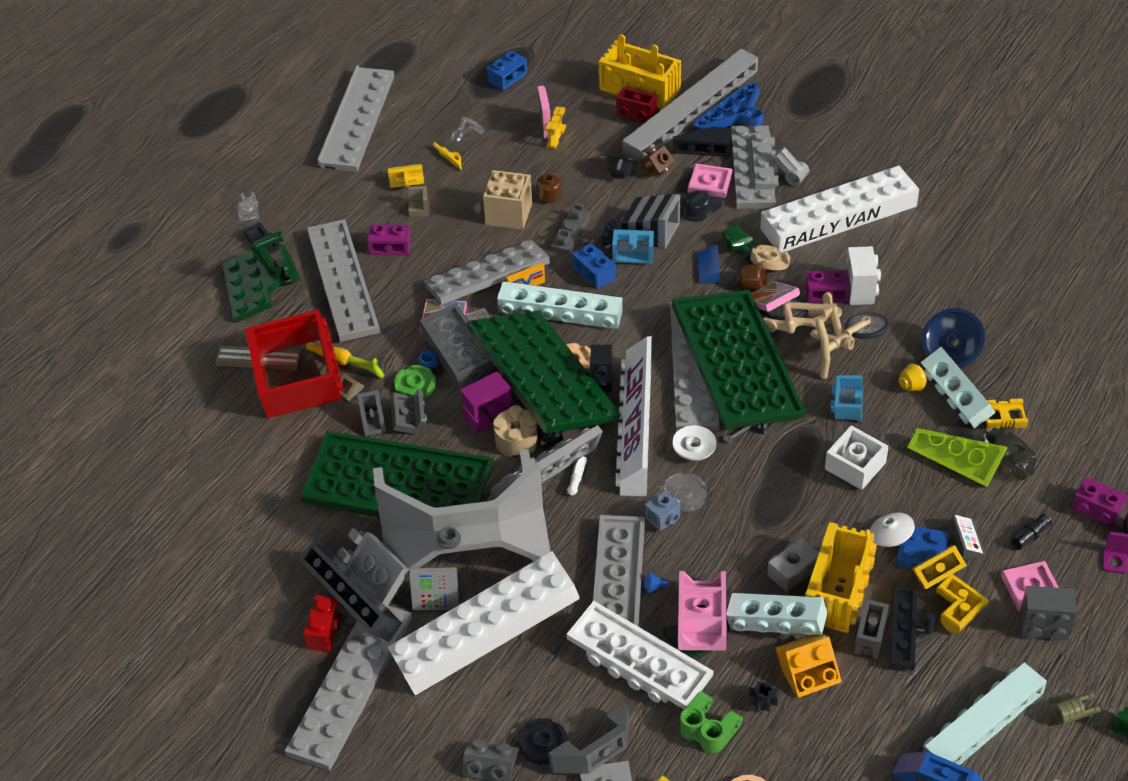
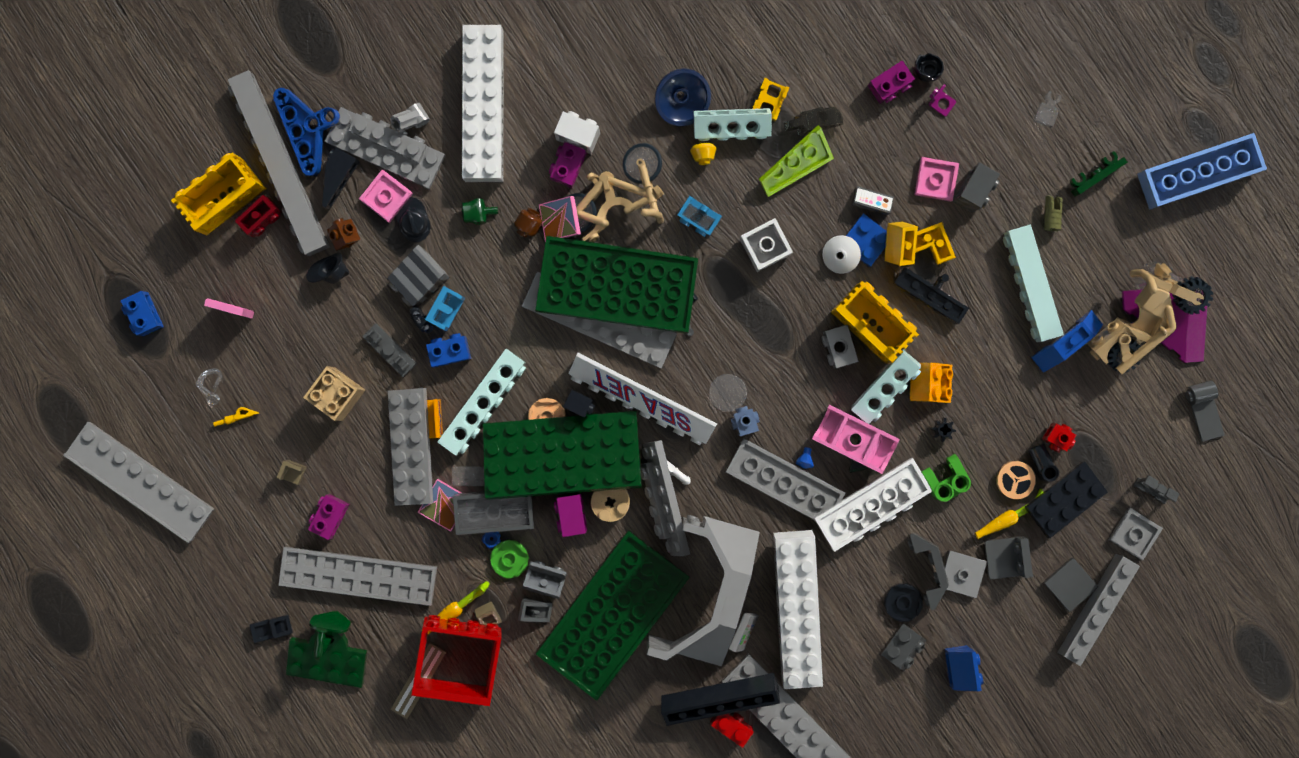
camera: 70 degrees left, 40 degrees up
(248, 208) = (220, 627): clear plate -> none
(374, 565) = (700, 671): light grey tile -> none
(406, 175) = (250, 470): yellow hips -> none
(449, 538) = (735, 617): dark grey plate -> none
(549, 188) = (338, 347): reddish brown head -> none
(556, 127) = (247, 300): yellow piece -> none
(694, 442) = (691, 353): white dish -> none
(708, 265) = (491, 251): blue slope -> none
(770, 257) = (507, 188): tan plate -> none
(870, 629) = (927, 322): dark grey brick -> none
(1031, 531) = (890, 149): black pin -> none

